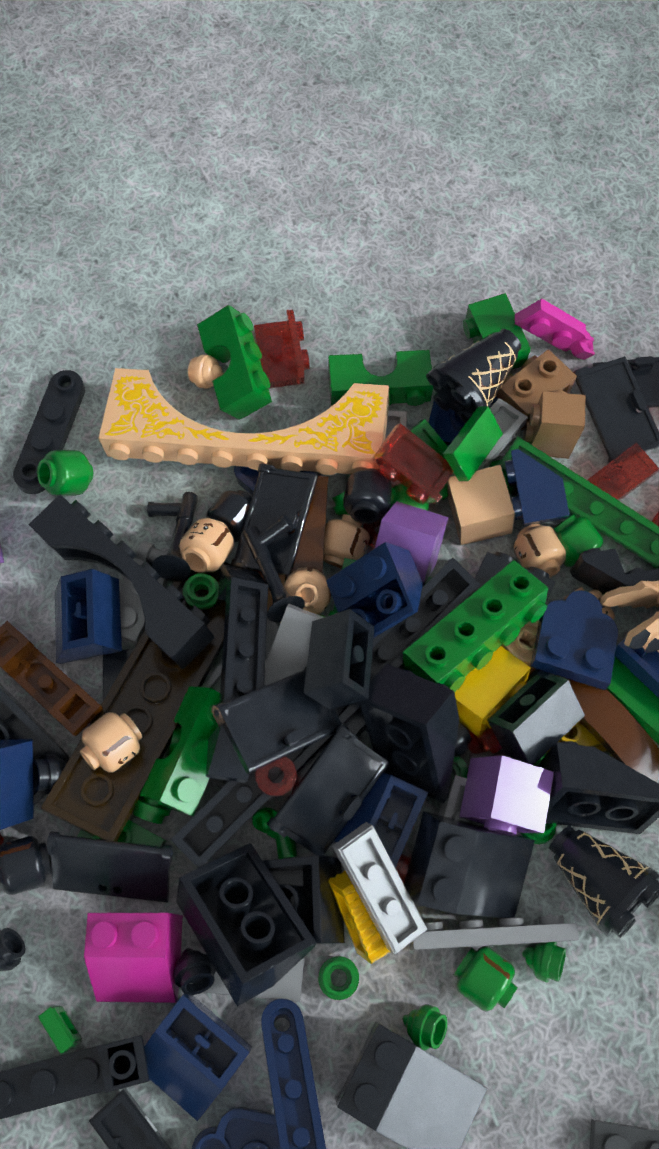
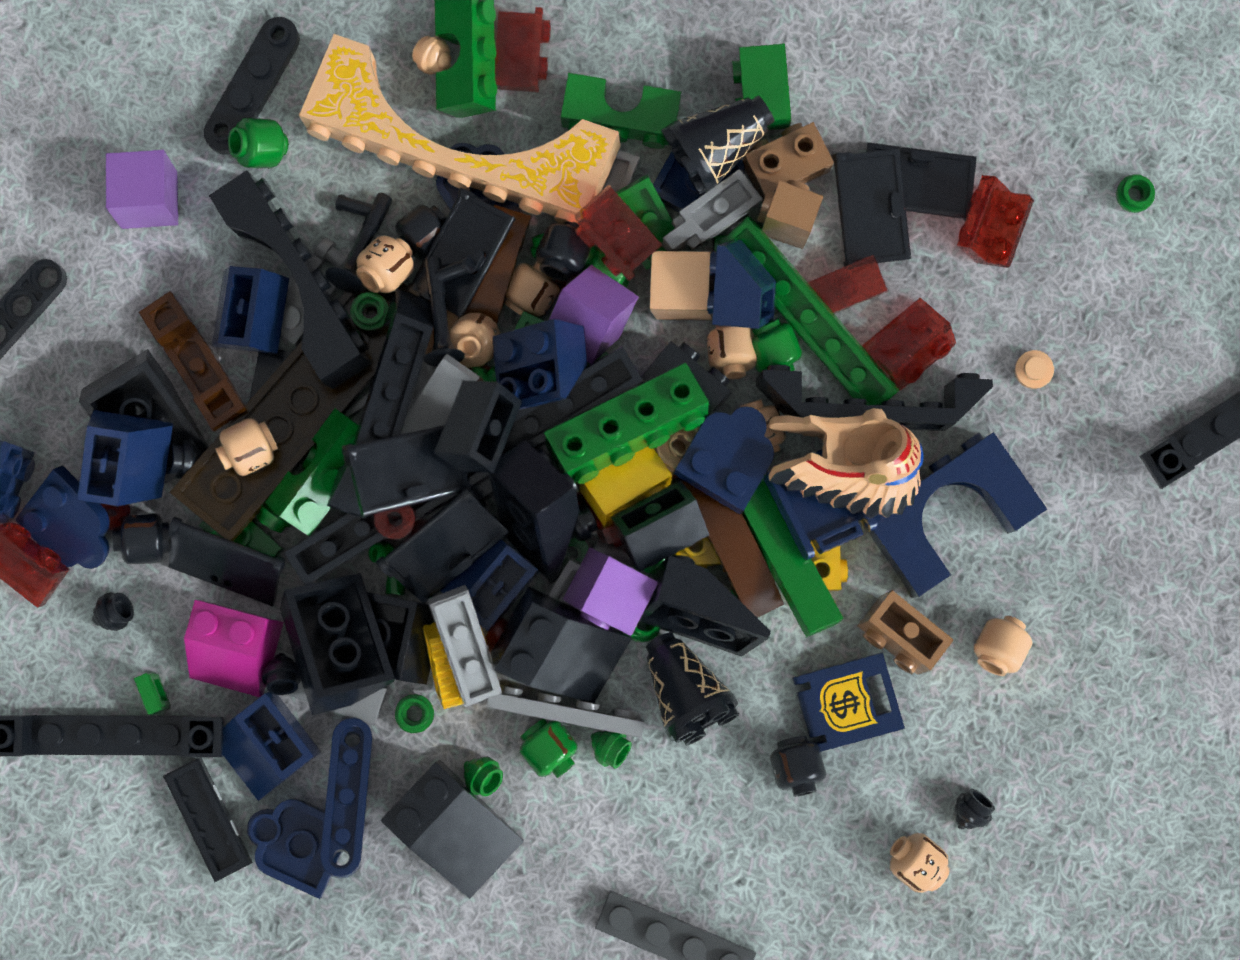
camera: 15 degrees right, 15 degrees up
(473, 443) = (686, 223): green tile -> none
(556, 328) = (832, 99): dark pink hinge -> none

